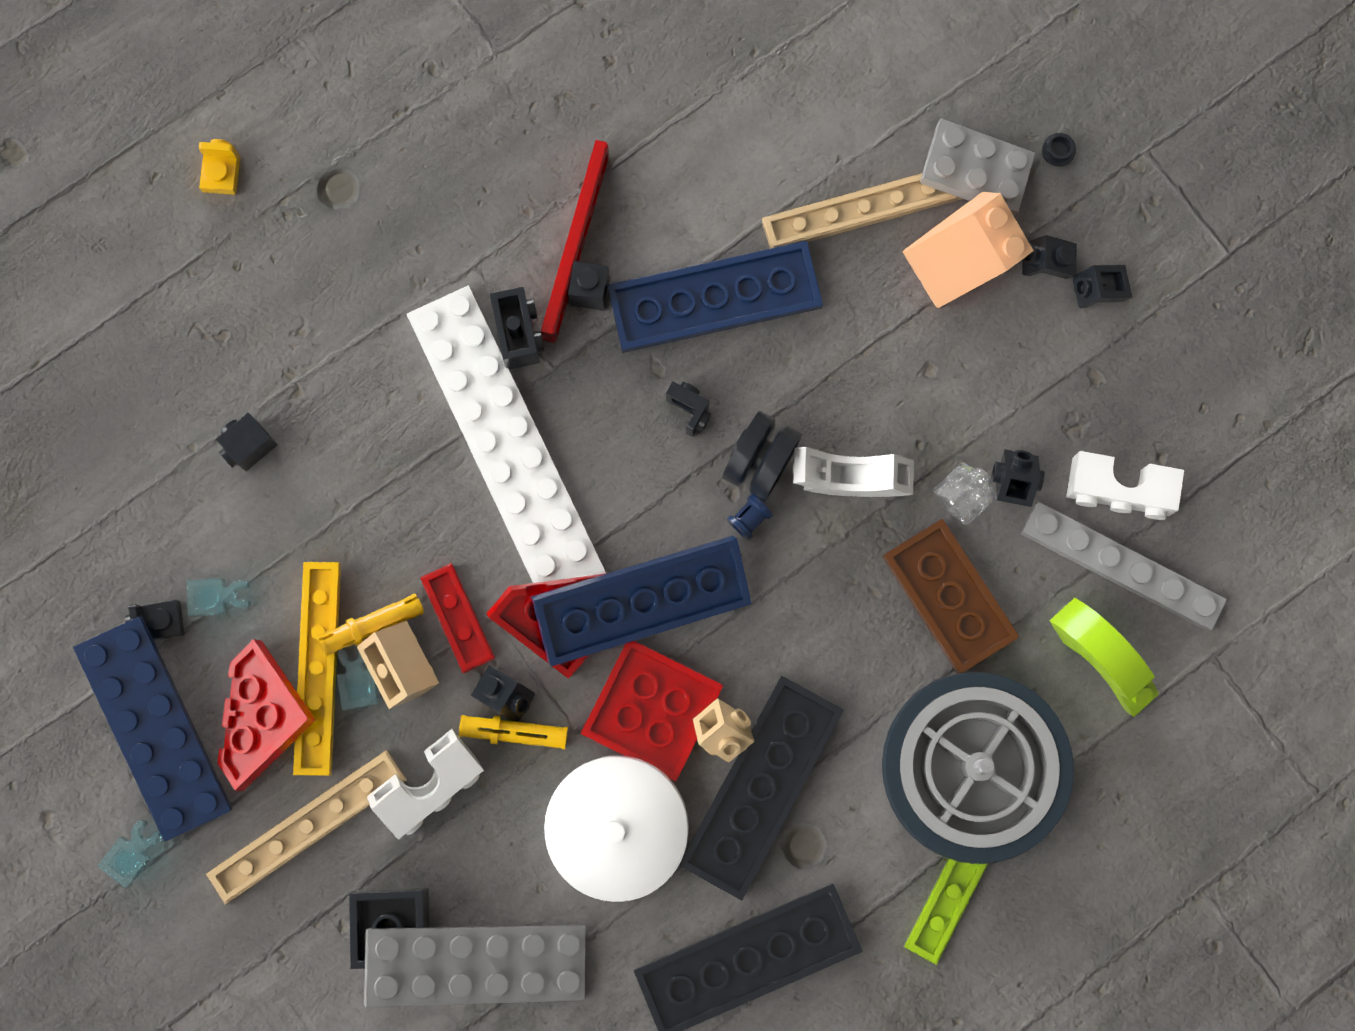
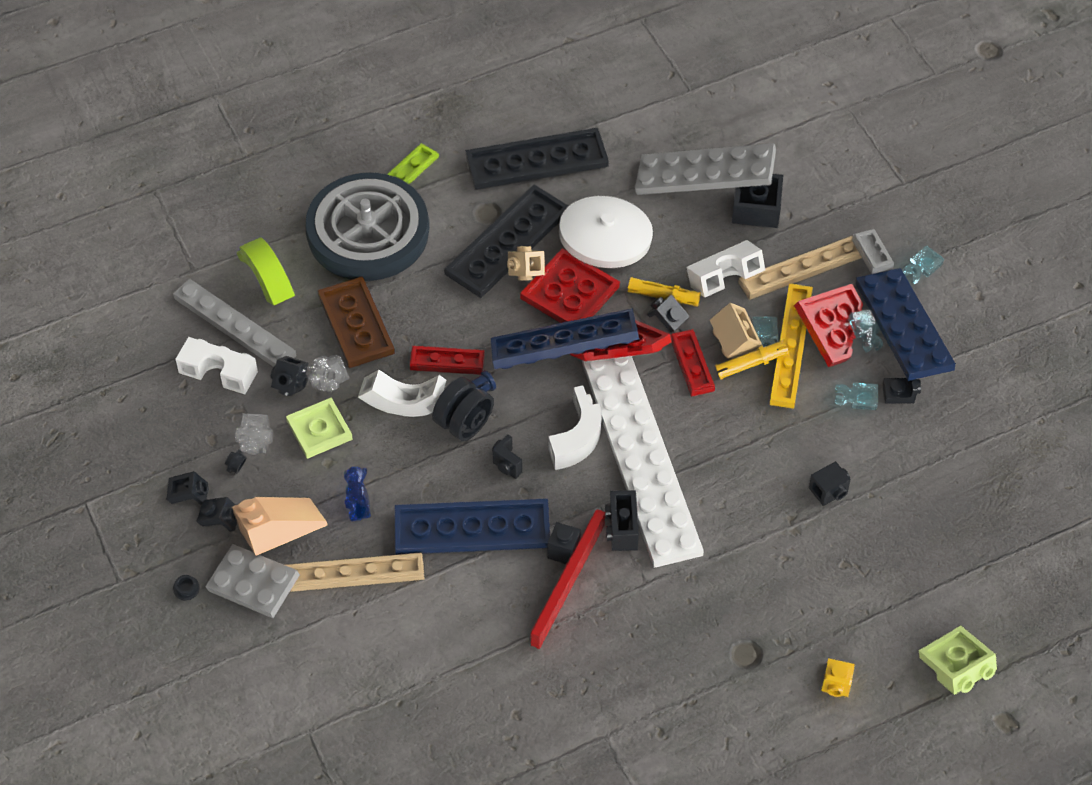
camera: 170 degrees left, 25 degrees down
(67, 211) = (959, 660): none -> yellowish green plate
(206, 858) = (872, 251): none -> light grey plate
(213, 716) = (865, 326): none -> clear light blue plate
(596, 444) = (578, 443): none -> white arch
(805, 559) = (447, 360): none -> red tile
(875, 309) = (356, 494): none -> clear blue animal
(954, 410) = (319, 428): none -> yellowish green plate
(1038, 376) = (254, 433): none -> clear brick
(1052, 337) = (235, 461): none -> black plate

